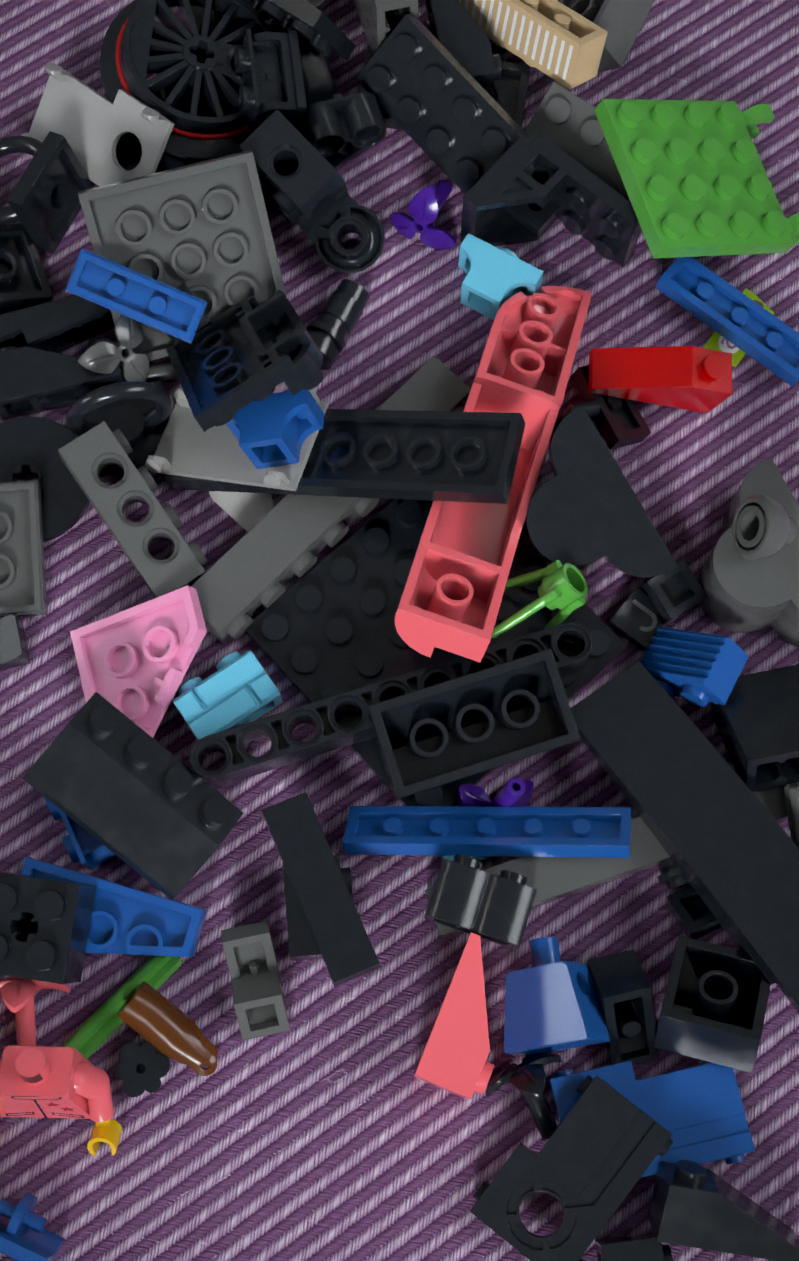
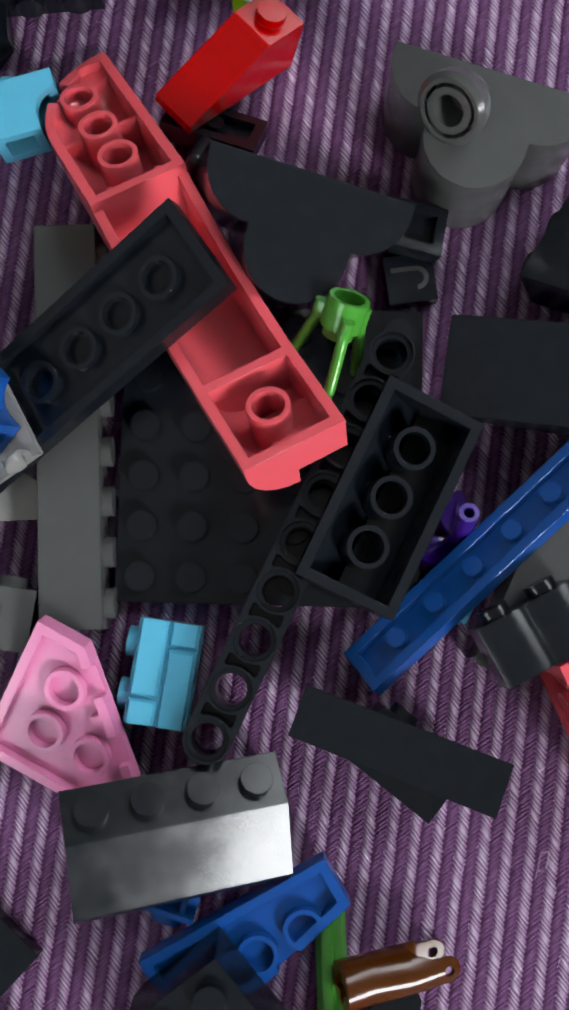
camera: 45 degrees left, 10 degrees up
(255, 980) = (414, 861): dark grey slope -> none
(694, 664) = (496, 274): blue brick -> none

